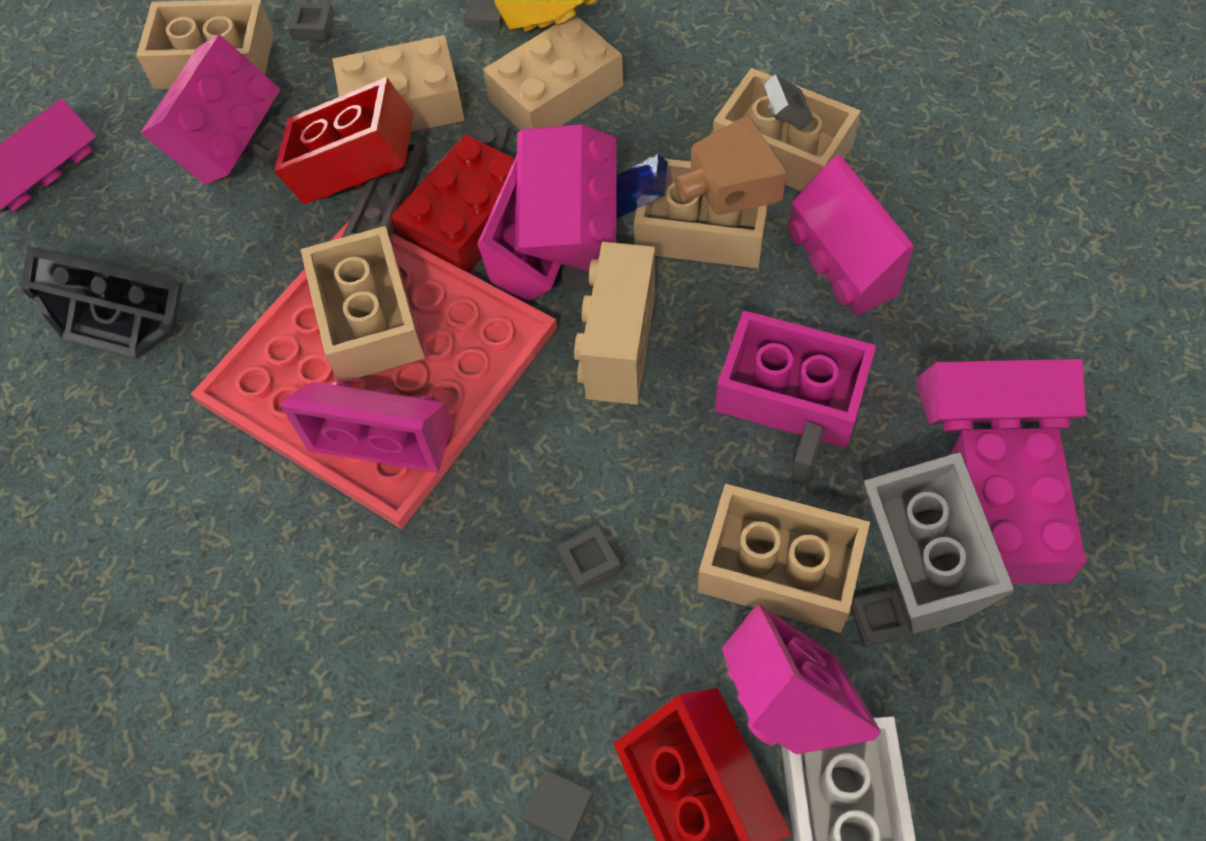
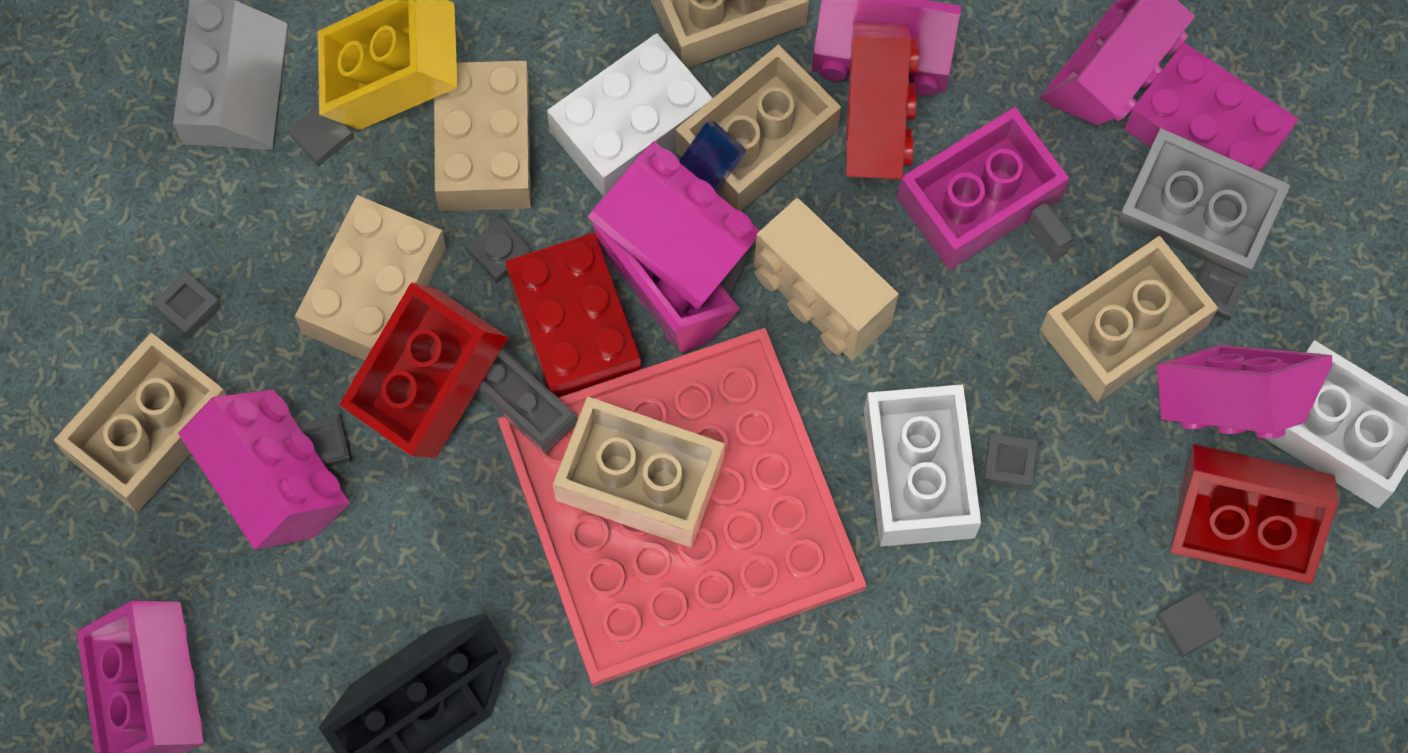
camera: 60 degrees left, 10 degrees up
(371, 424) = (772, 539): dark pink slope -> none
(525, 490) = (921, 465): none -> white brick
(648, 125) = (626, 110): none -> white brick
(733, 170) = (766, 76): medium nougat torso -> none
(786, 249) = (880, 100): none -> red brick

